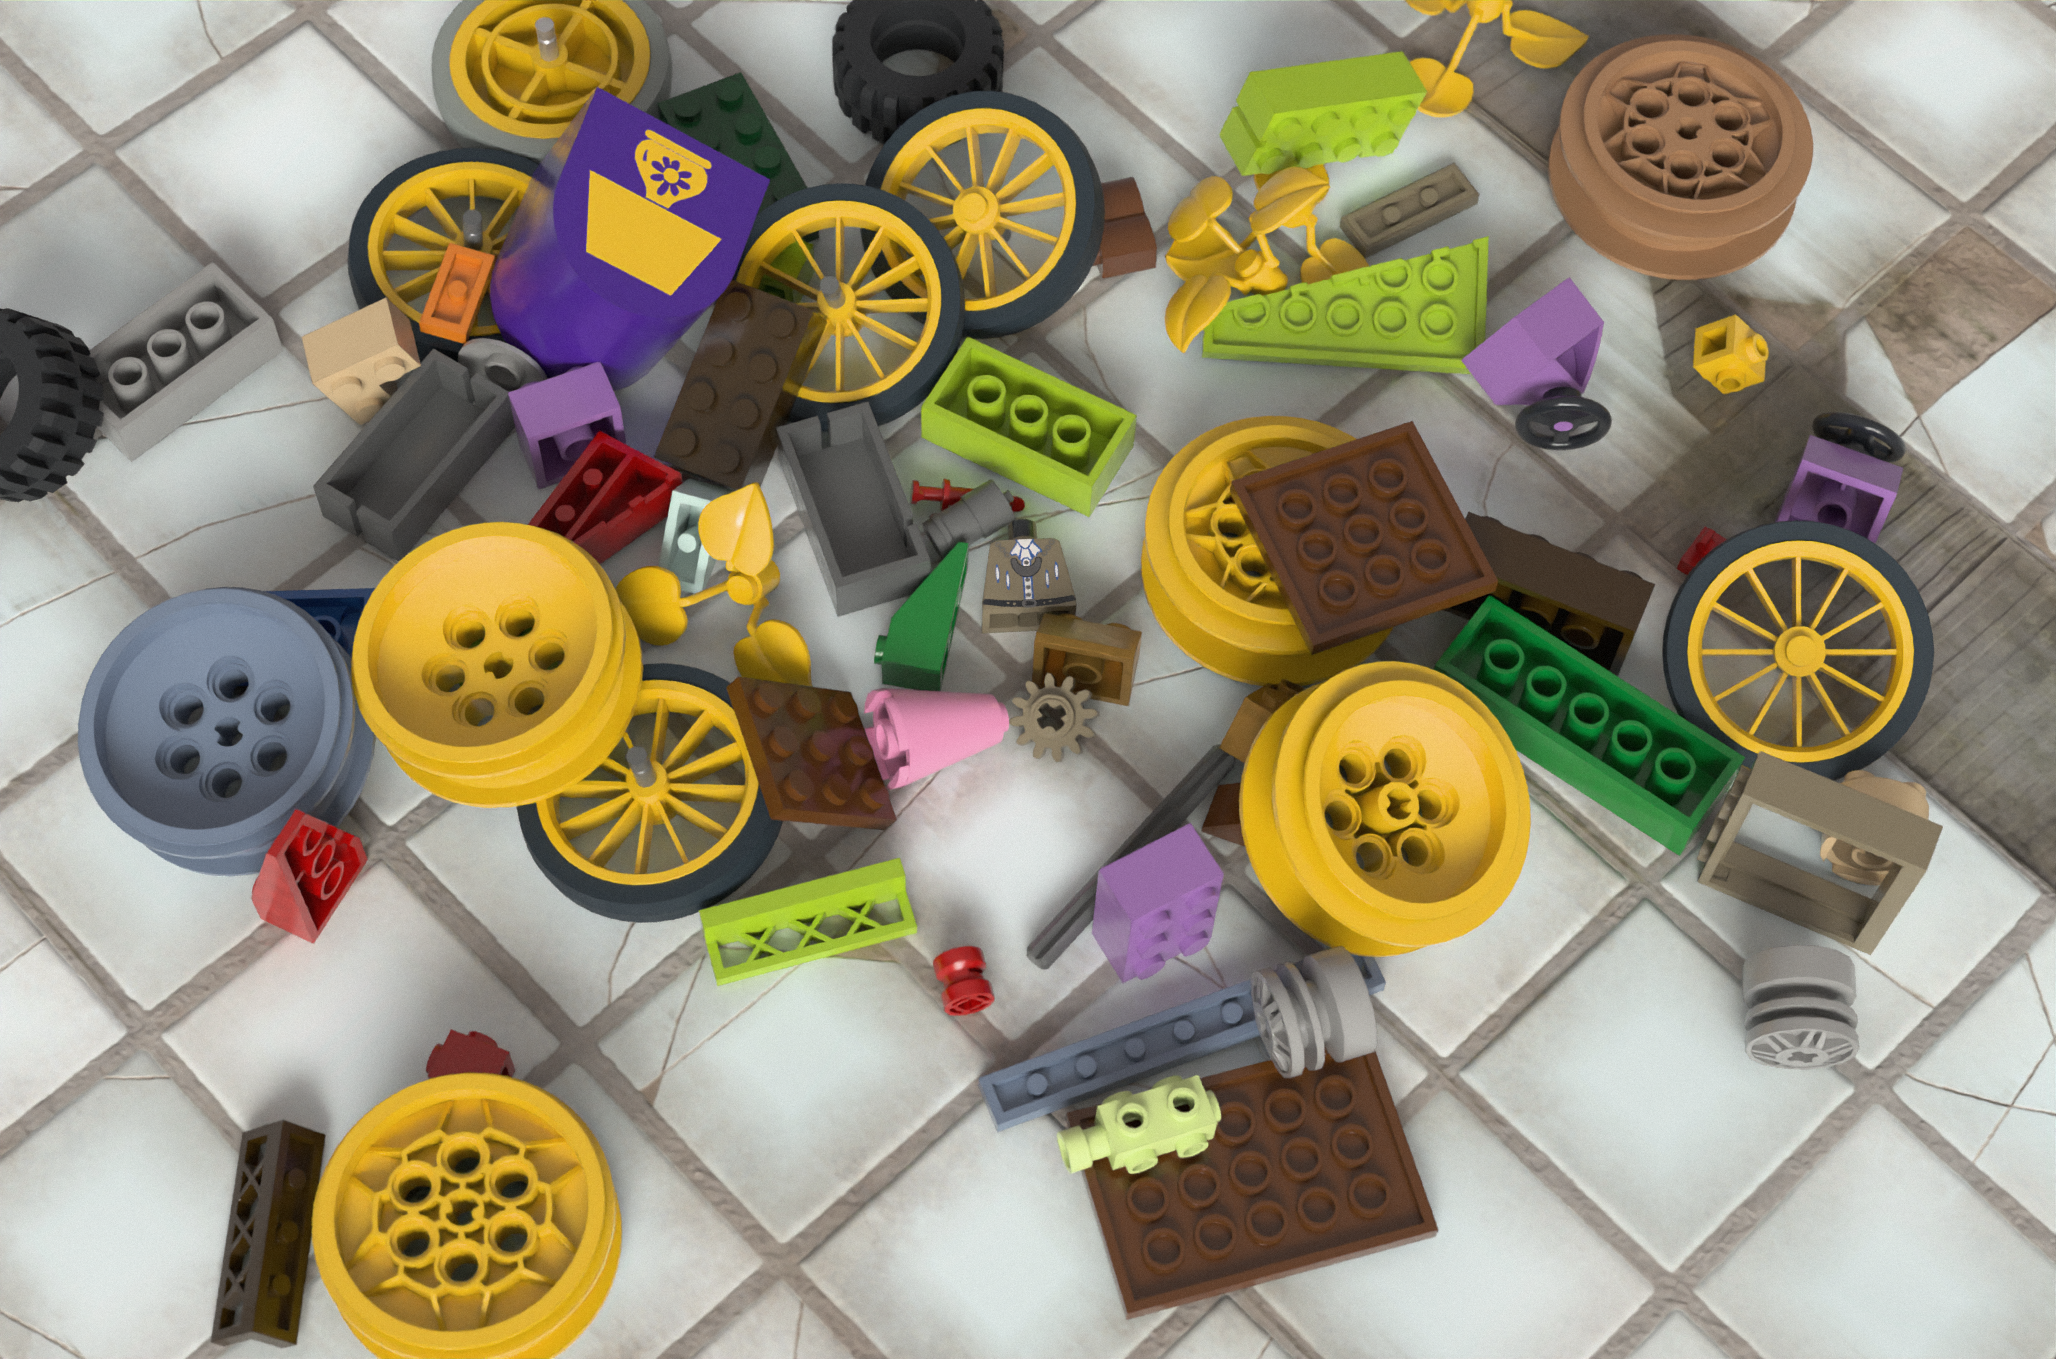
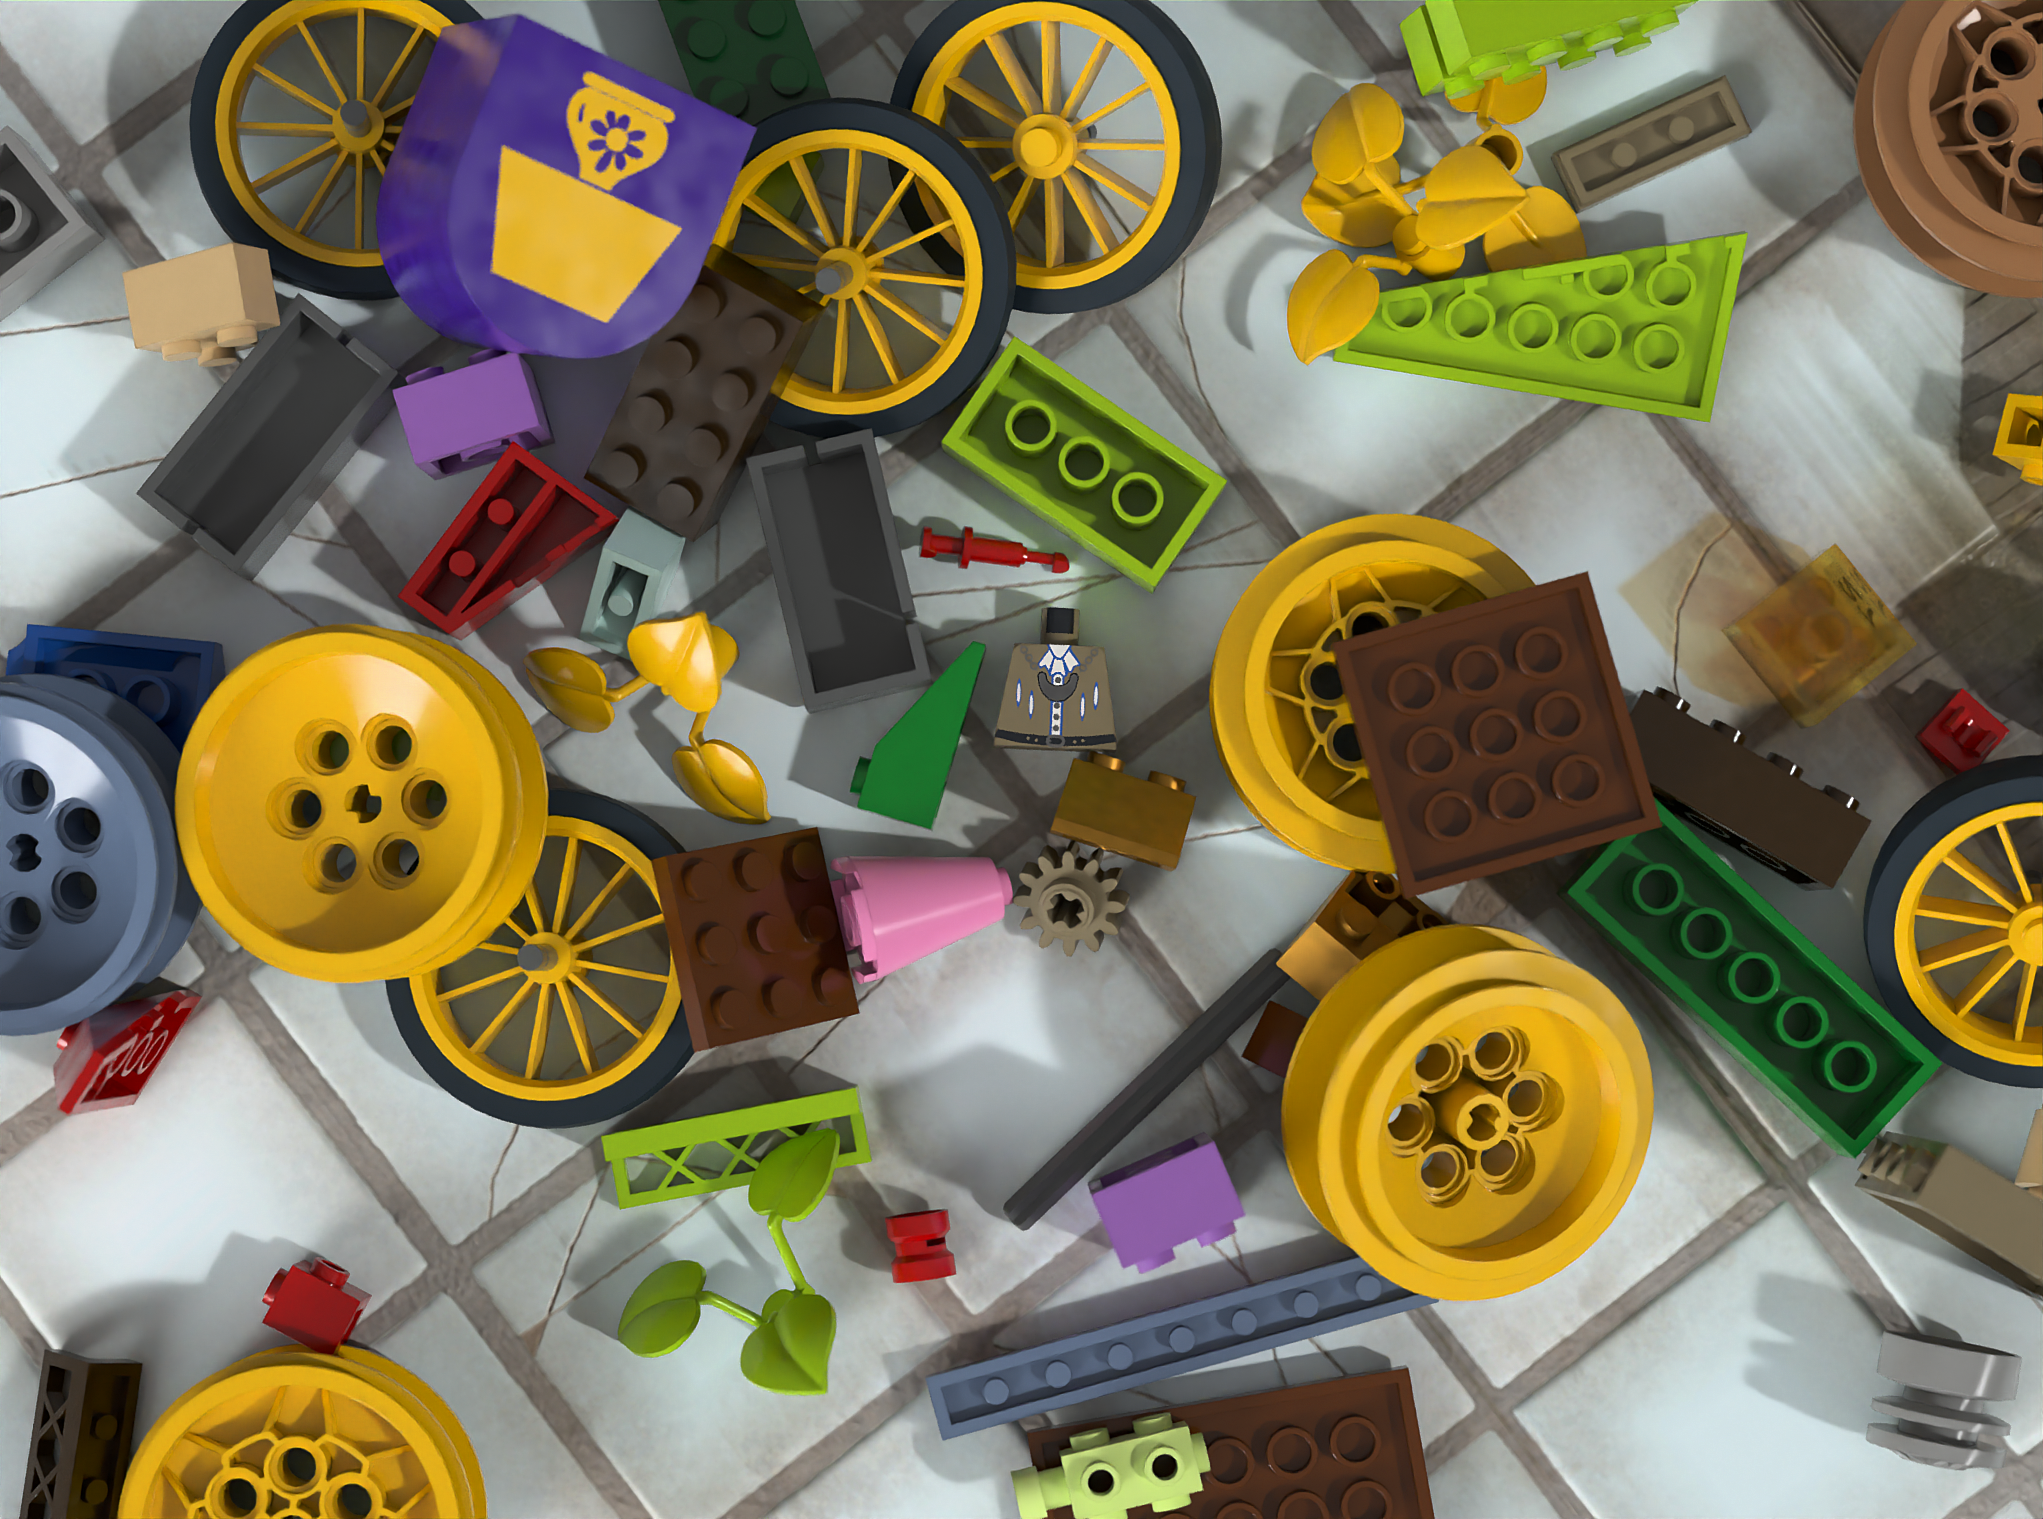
camera: 10 degrees right, 25 degrees up
(457, 293) = (332, 213): orange plate -> none
(500, 363) = (394, 320): light grey dish -> none
(858, 1034) = (796, 1327): none -> lime plant
(970, 519) = (995, 596): dark grey piece -> none
(1127, 234) = (1252, 157): reddish brown brick -> none
(1314, 1011) = (1339, 1363): light grey wheel -> none
(1546, 363) = (1789, 425): medium lavender piece -> none
(1590, 492) = (1819, 637): none -> clear yellow brick

